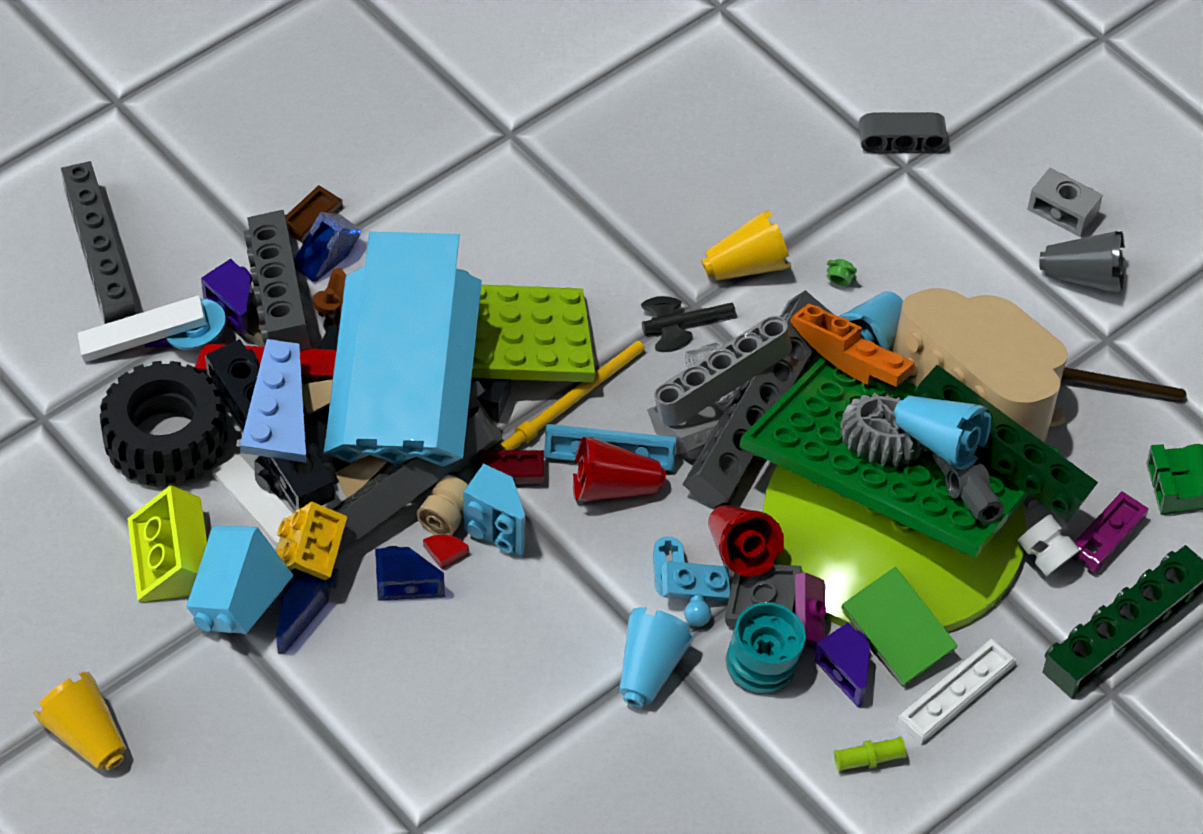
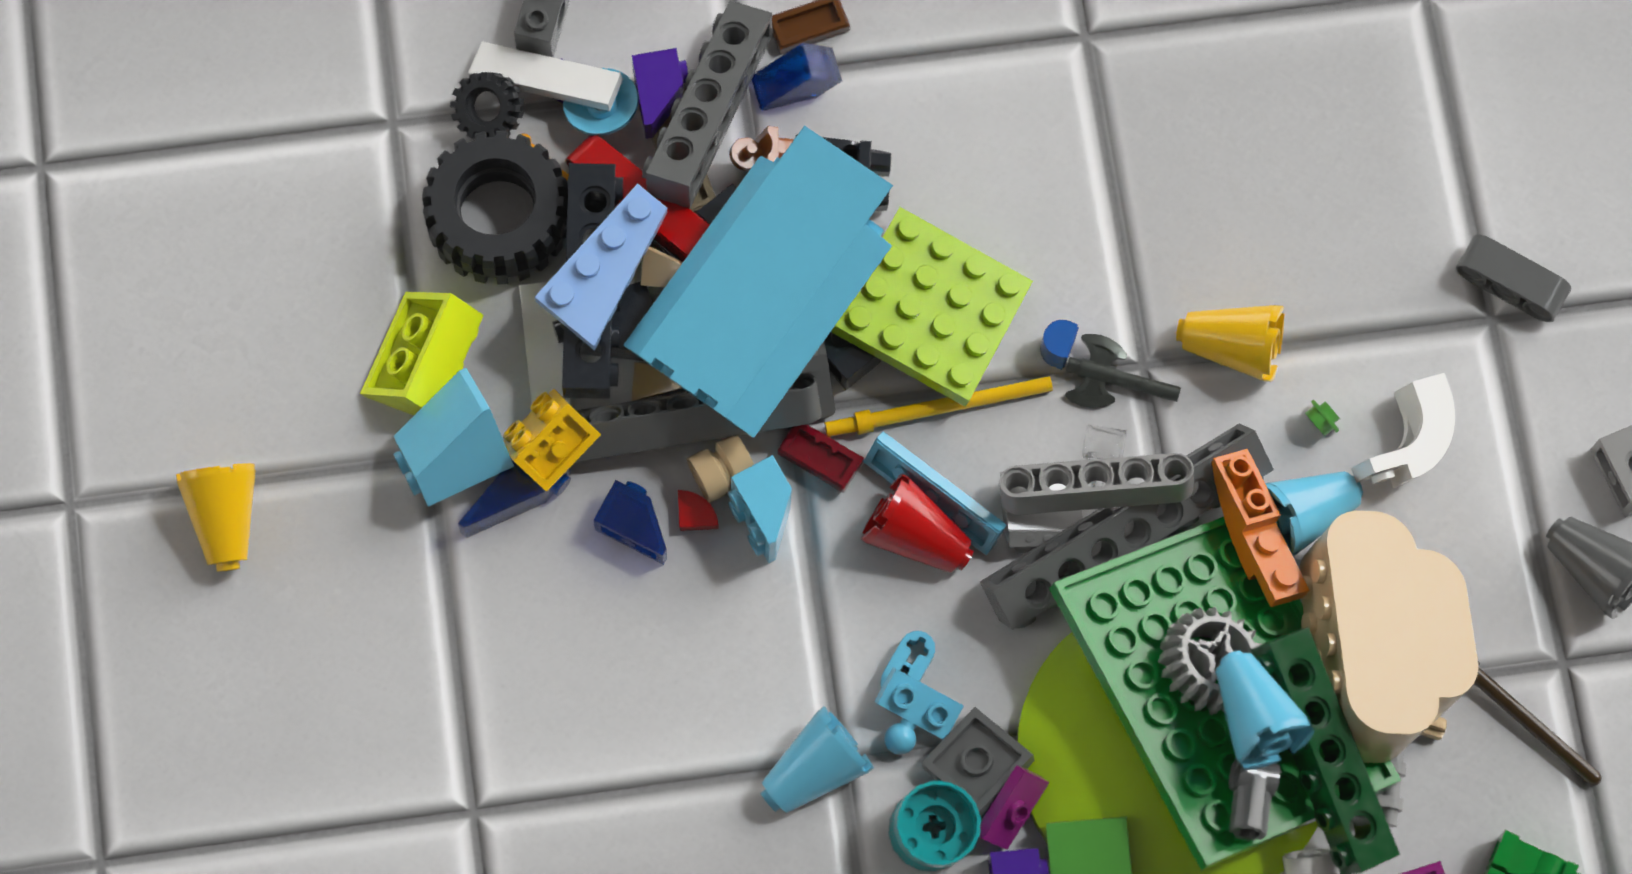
camera: 30 degrees right, 20 degrees up
(101, 349) = (467, 95): none -> black tyre
(628, 315) = (1058, 342): none -> blue brick
(746, 539) = (992, 689): red cone -> none
(915, 243) = (1428, 430): none -> white arch

